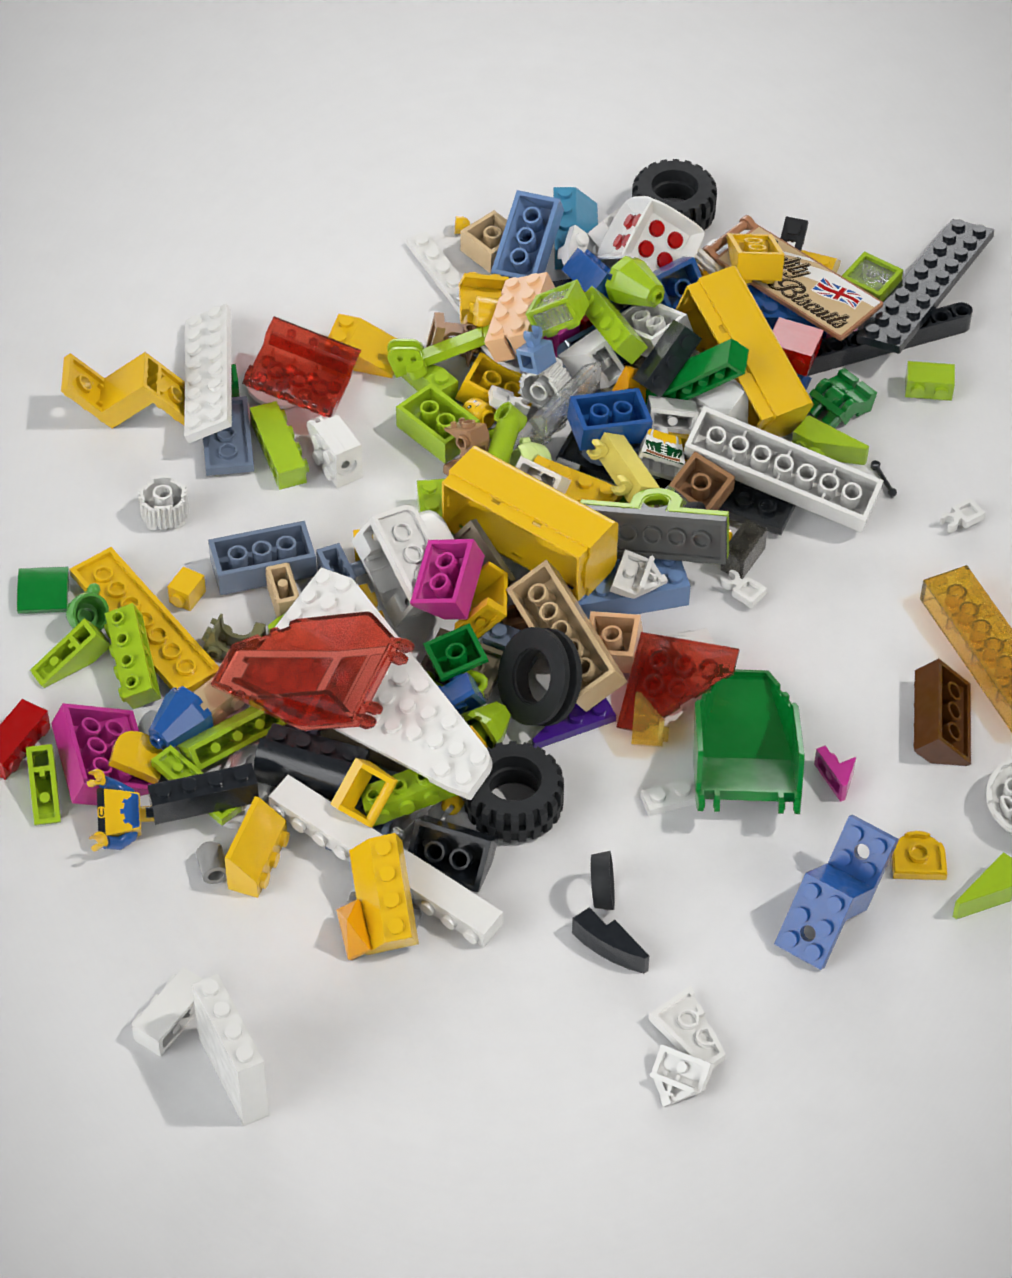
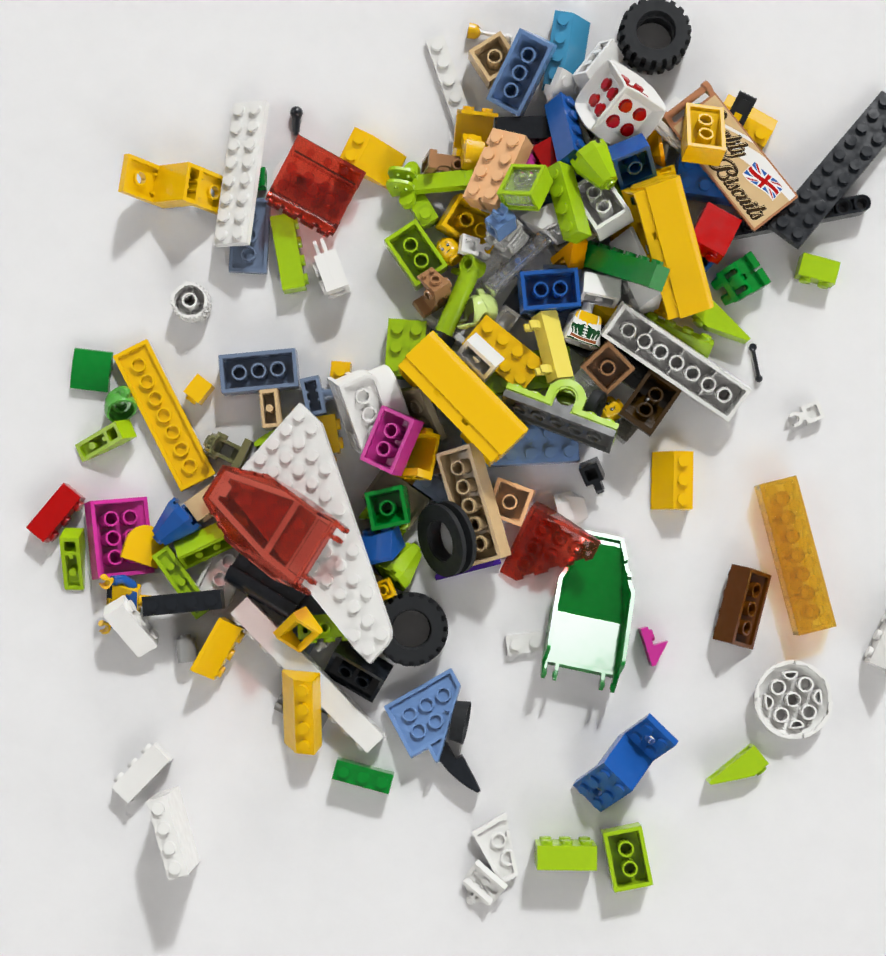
camera: 10 degrees right, 35 degrees up
(132, 656) = (149, 454): lime brick -> none
(136, 833) = (131, 625): none -> white brick
(263, 320) = (296, 114): none -> black piece
(354, 929) = (277, 726): light orange slope -> none
(483, 968) = (363, 775): none -> green brick
(553, 885) = (426, 714): none -> medium blue wing
(636, 576) = (539, 449): white slope -> none
(648, 724) = (521, 584): clear yellow slope -> none
(667, 358) = (605, 247): black brick -> none
(711, 602) = (592, 474): none -> black brick
(744, 590) = (624, 461): white plate -> none
(764, 507) = (649, 402): none -> dark brown slope
(785, 1011) = (565, 853): none -> lime brick
(814, 600) = (672, 480): none -> yellow slope
(870, 1006) = (626, 857): none -> lime brick
(874, 275) = (795, 157): piece -> none
(919, 857) = (693, 726): yellow tile -> none

